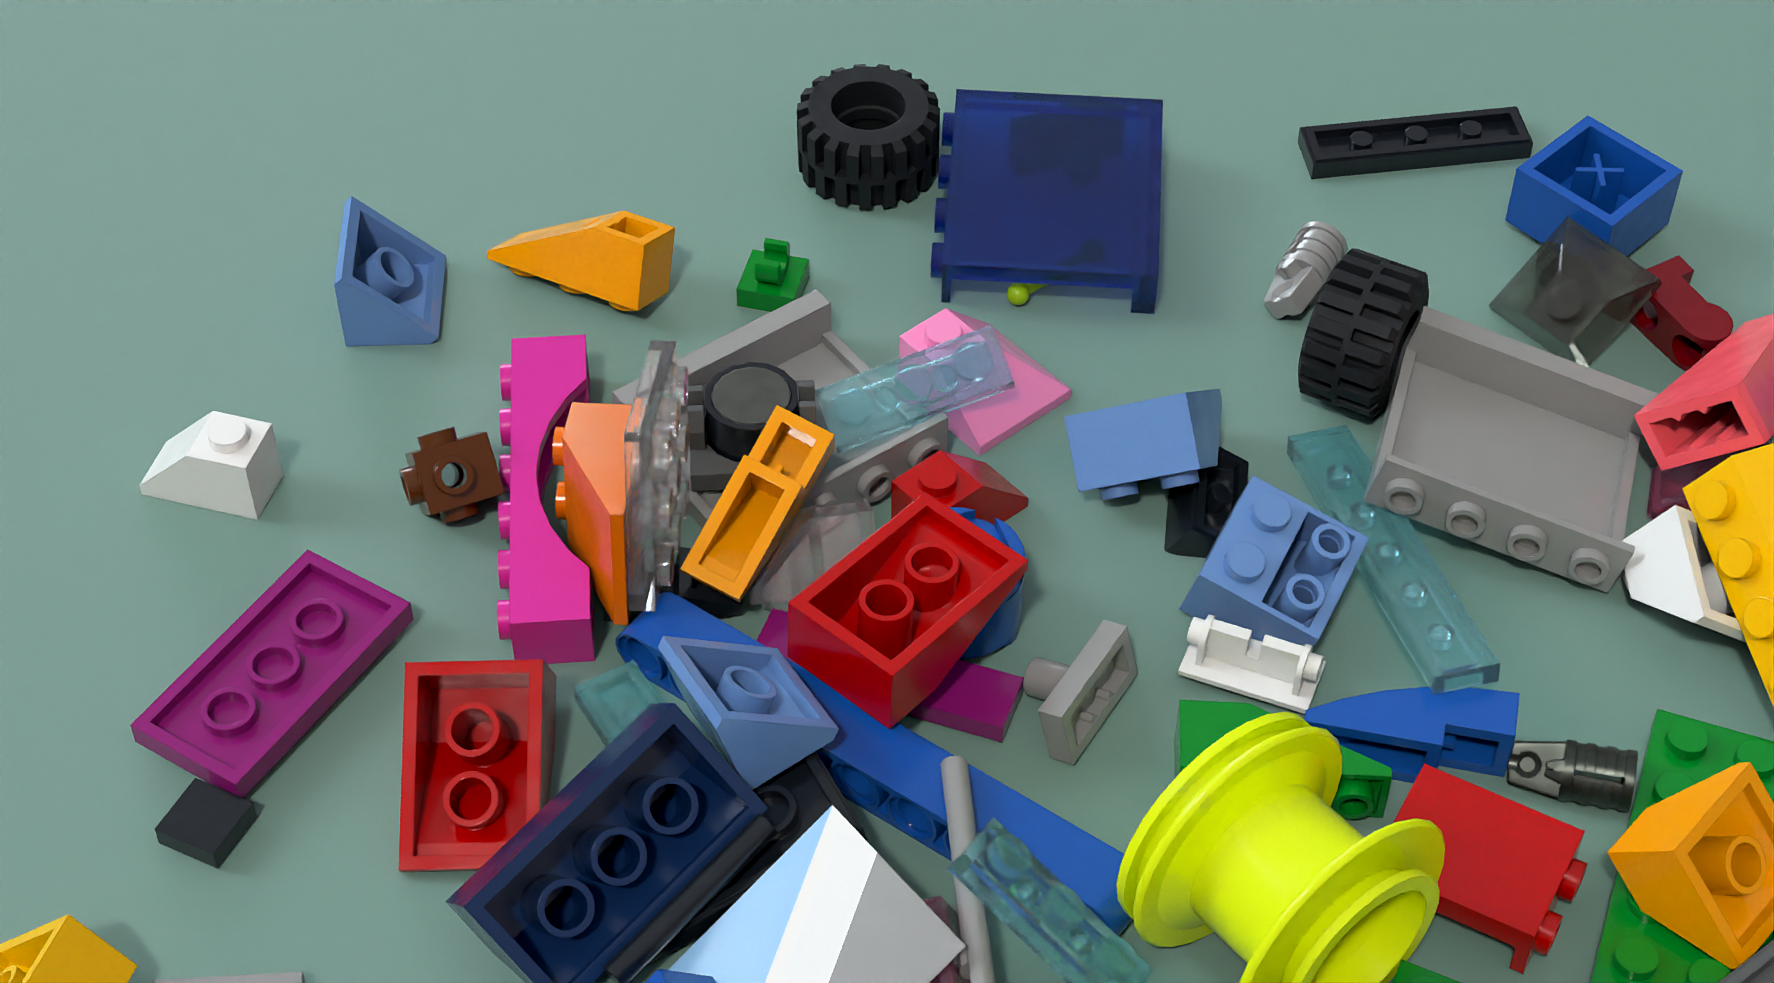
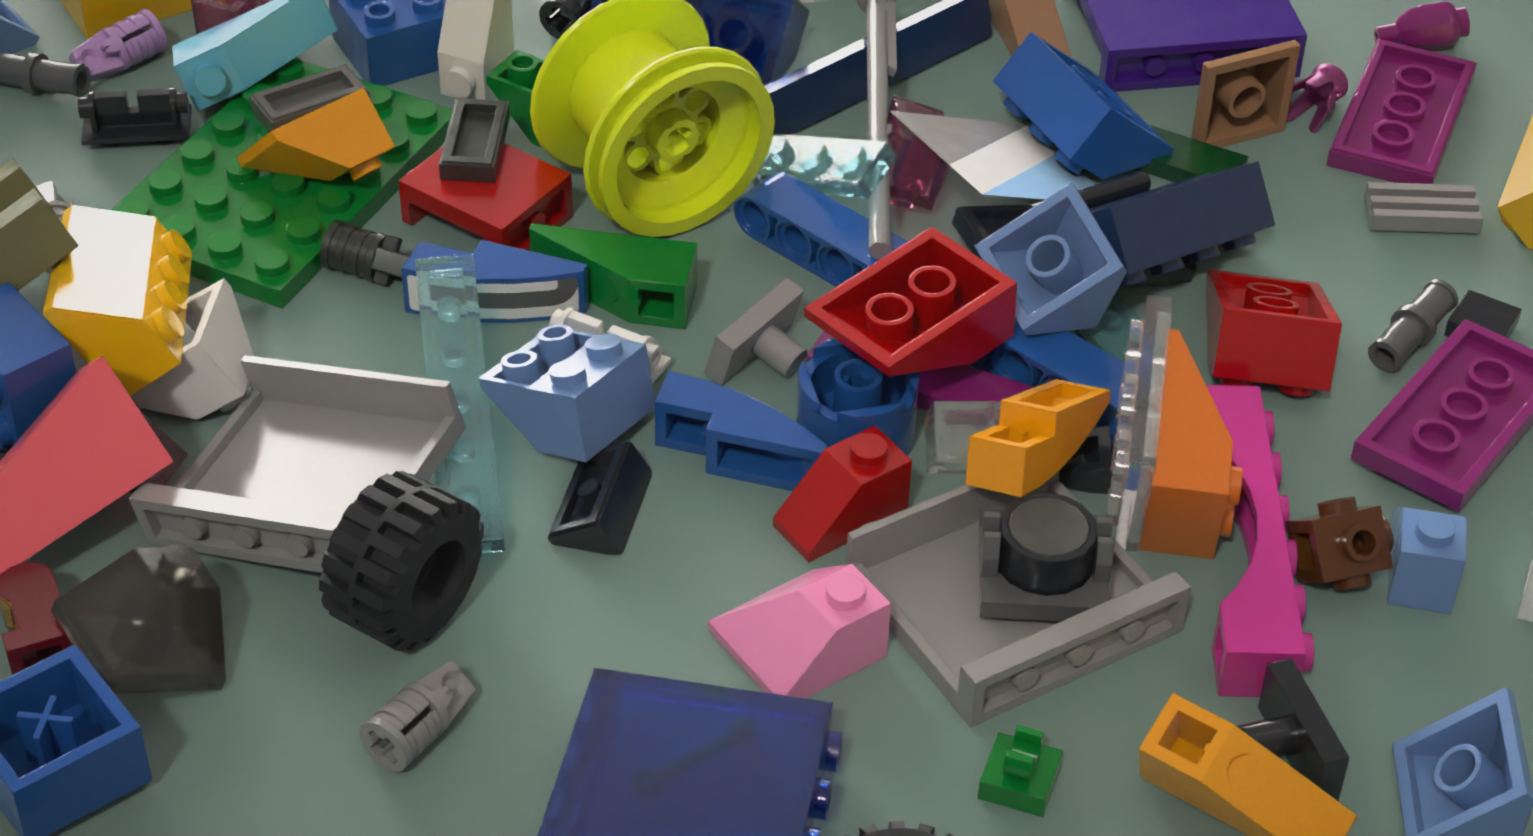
camera: 175 degrees left, 5 degrees down
(297, 791) = (1413, 325): none -> dark grey pin
(361, 495) = (1426, 559): none -> medium blue slope
(528, 310) = (1298, 728): none -> black tile
(915, 388) = (879, 547): clear light blue plate -> none
(1084, 564) = (734, 432): none -> blue slope
(1145, 441) = (649, 513): medium blue slope -> none
(1512, 892) = (474, 140): none -> pearl dark grey tile

